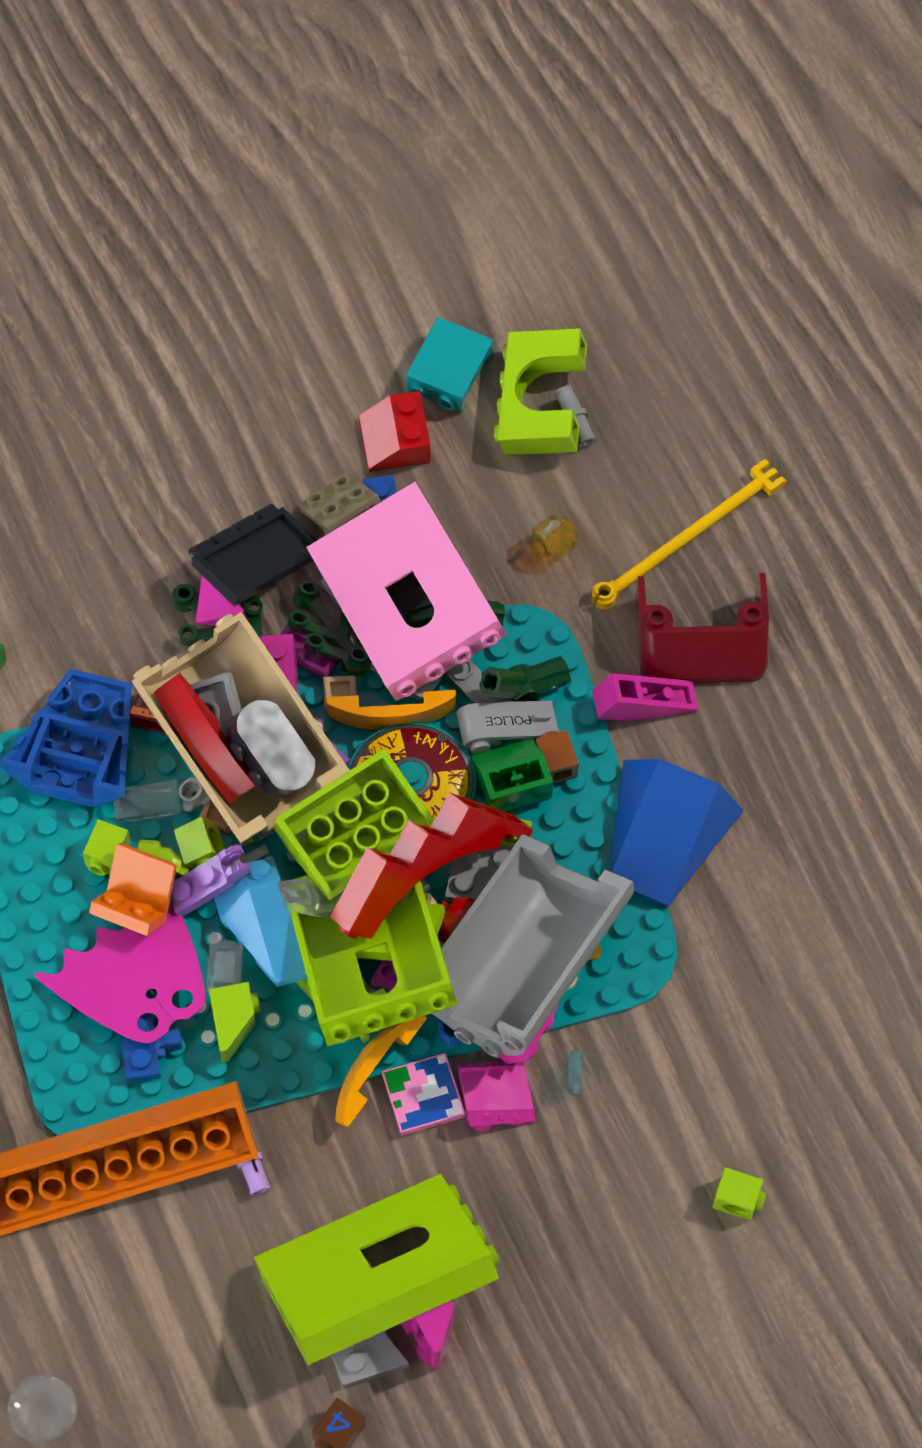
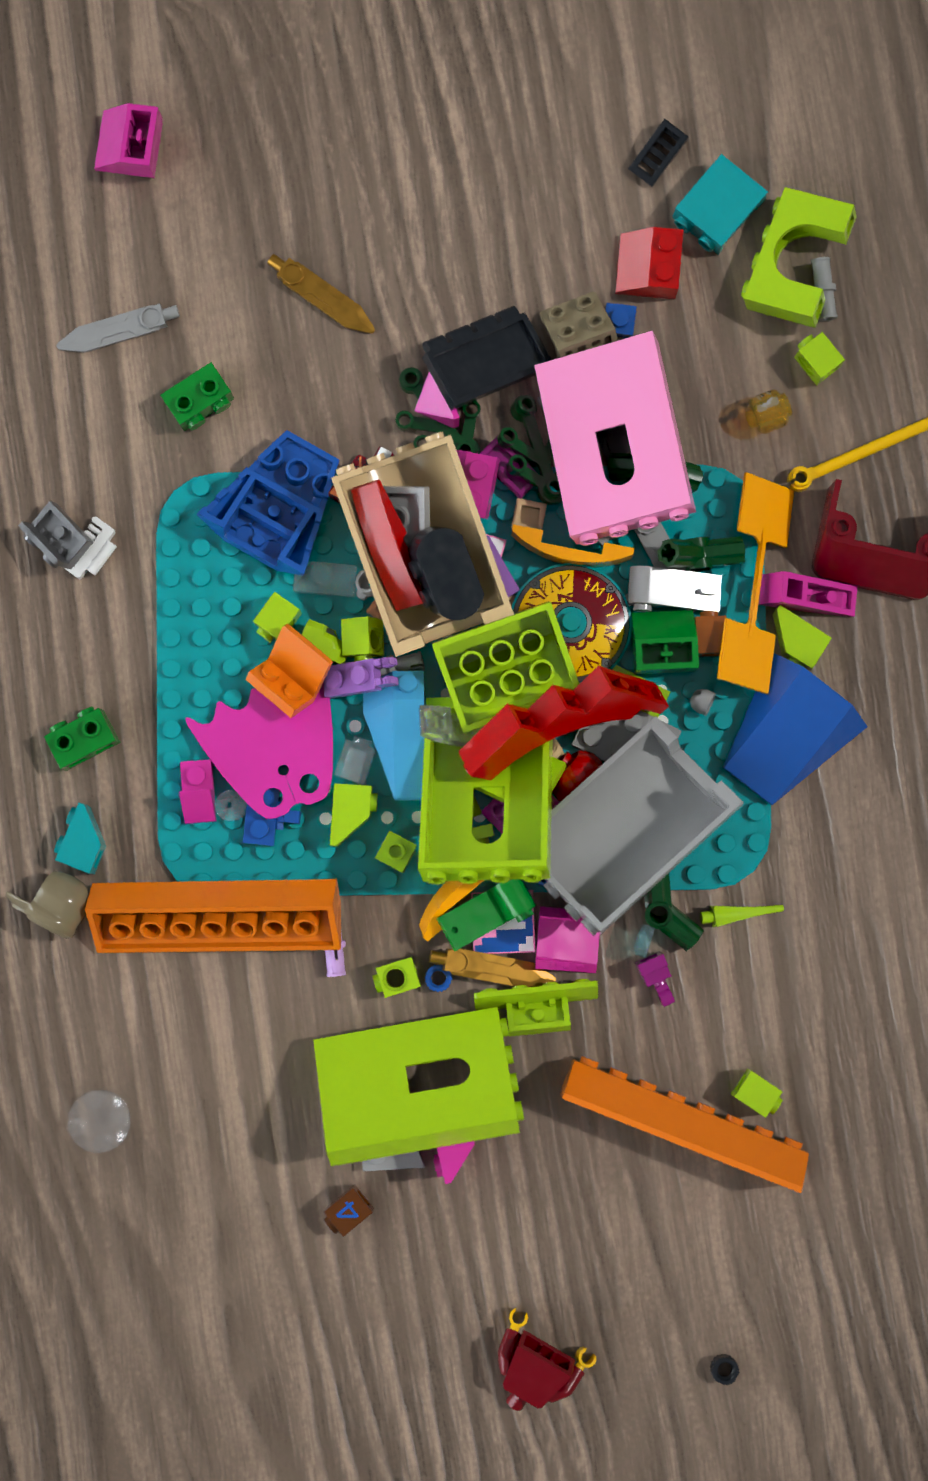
camera: 20 degrees right, 20 degrees up
(66, 1041) = (197, 791): none -> dark pink slope
(71, 540) = (321, 294): none -> pearl gold piece
(104, 1047) = (238, 806): none -> clear tile
(291, 1044) = (396, 851): none -> lime brick
(332, 1161) = (410, 973): none -> lime brick
(372, 1177) = (431, 985): none -> blue axle
(383, 311) = (673, 132): none -> black slope
(416, 1070) = (487, 912): none -> green door
(424, 1140) = (491, 967): none -> pearl gold piece
(484, 1164) = (539, 1007): none -> lime bracket
(567, 822) = (702, 701): none -> light grey hinge
(589, 479) = (818, 357): none -> lime brick
(595, 760) = (745, 648): none -> light orange hinge
(596, 1100) = (654, 972): none -> magenta piece
(604, 1046) = (675, 922): none -> dark green piece
(646, 737) = (799, 639): none -> lime slope
(654, 1026) = (728, 914): none -> lime piece
(671, 1243) = (685, 1124): none -> orange slope

